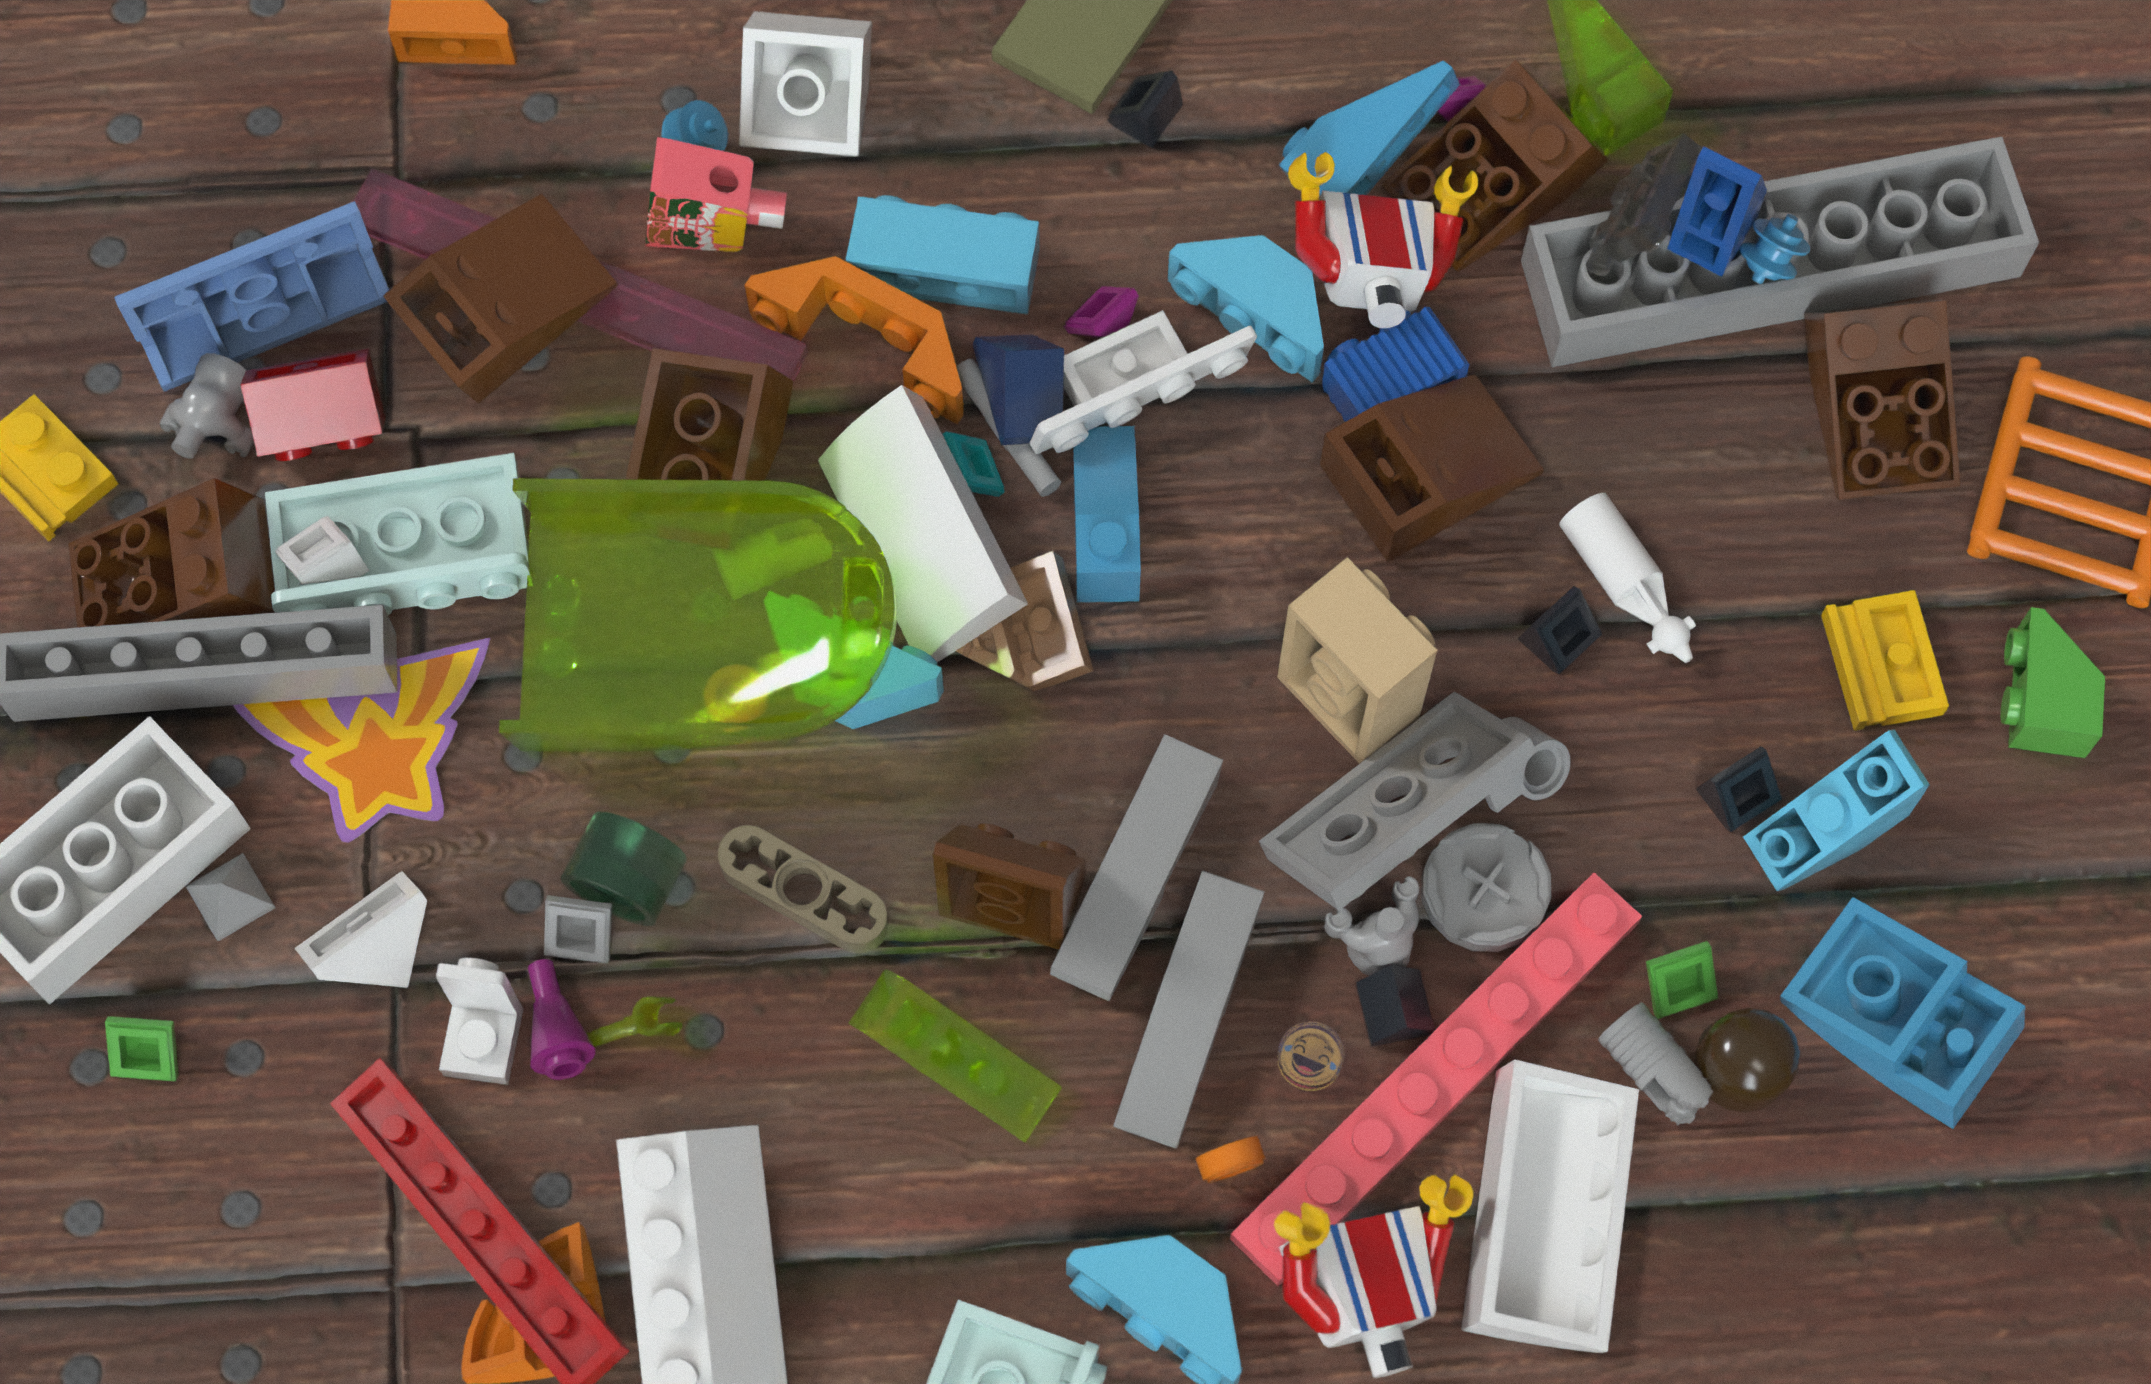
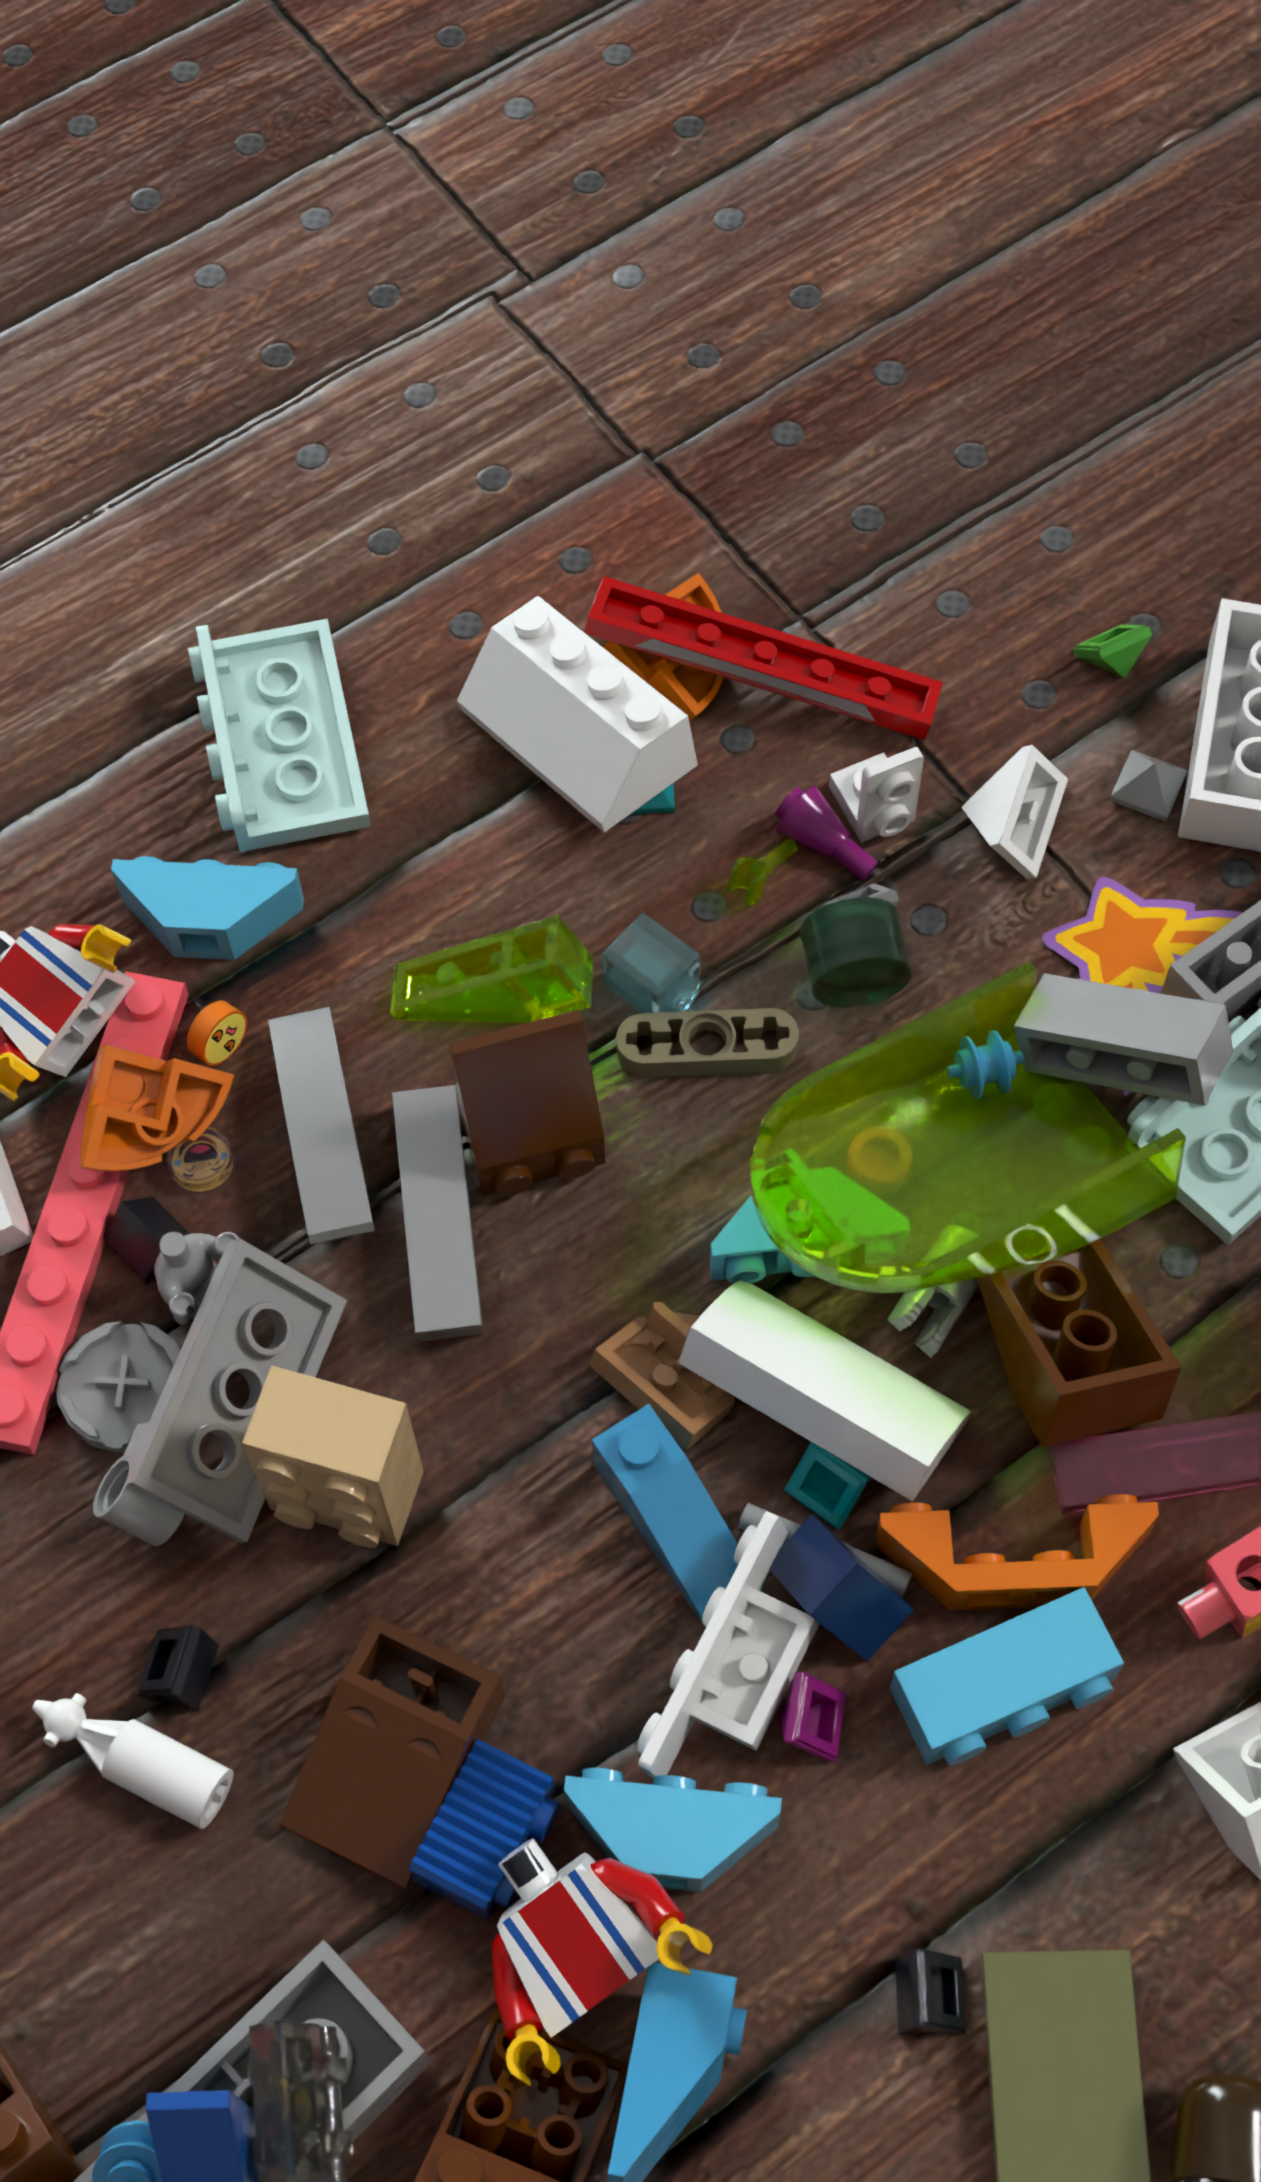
camera: 150 degrees right, 5 degrees down
(470, 630) = (1124, 1038): none -> light grey brick
(597, 692) = (985, 1064): none -> dark azure wheel
(806, 975) = (652, 968): none -> clear light blue brick
(1341, 1109) = (146, 1108): none -> orange brick

